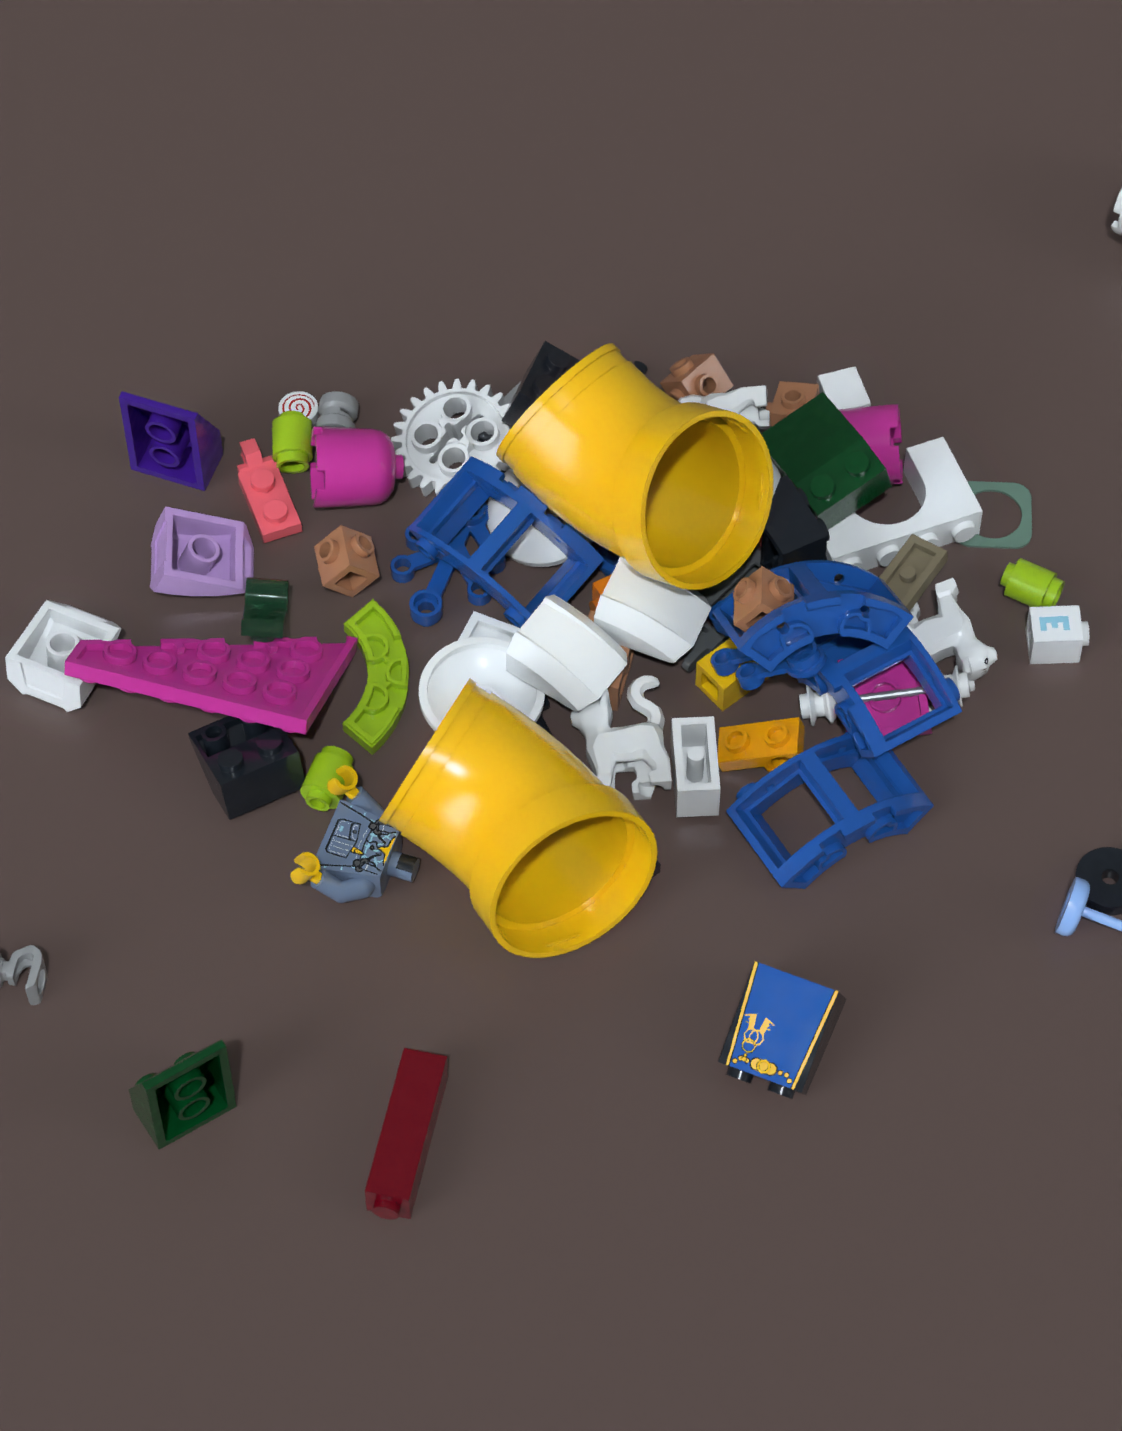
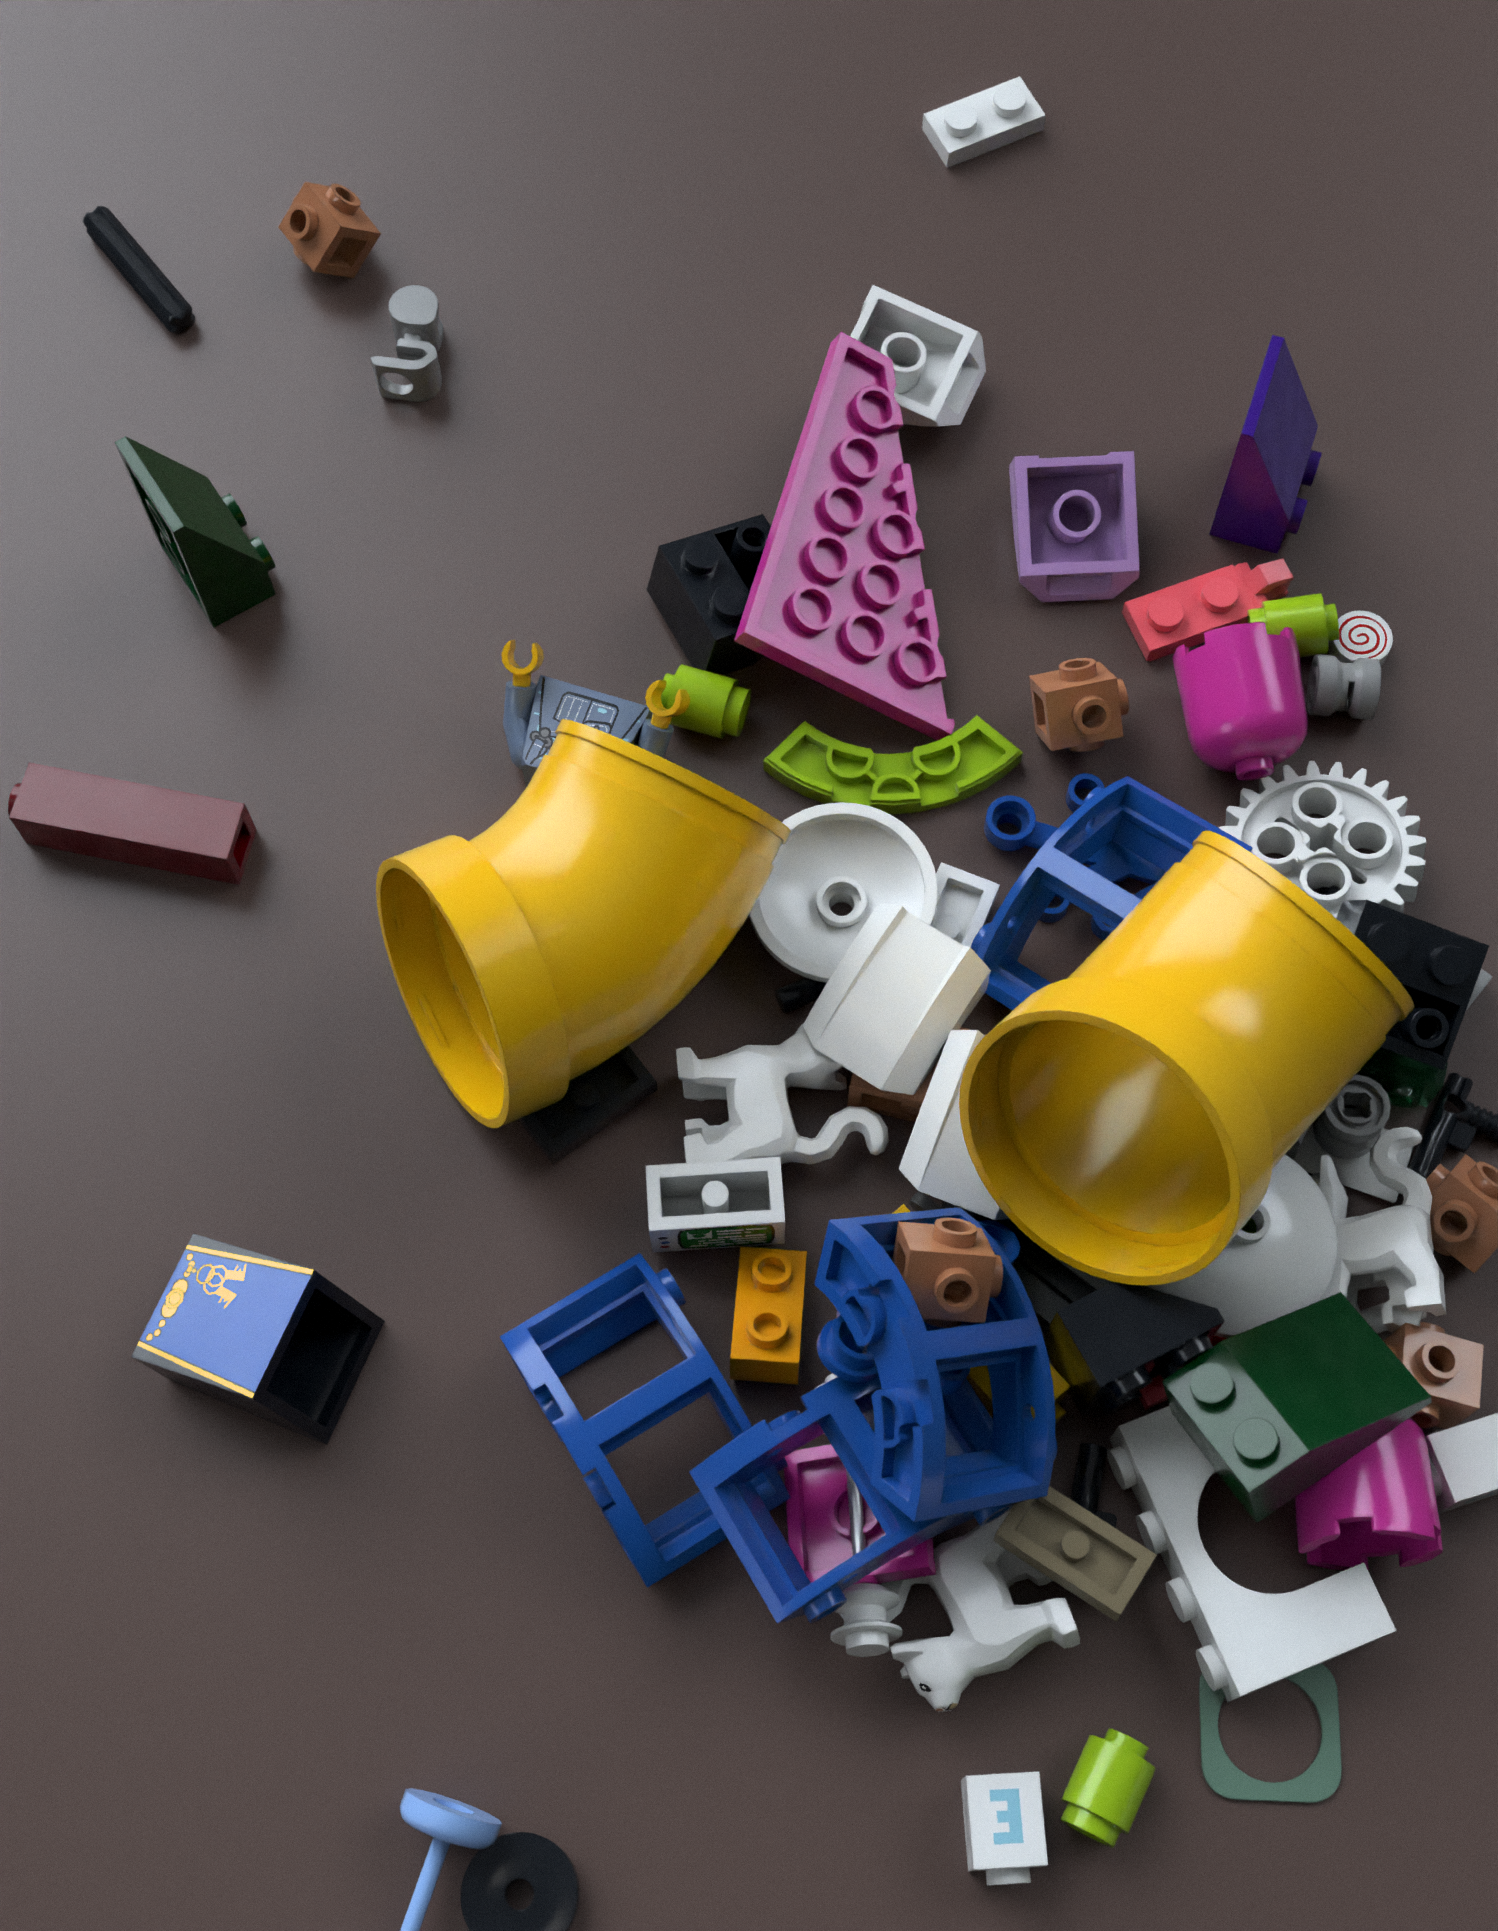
camera: 90 degrees right, 10 degrees up
(265, 609) = (981, 604): clear green plate -> none

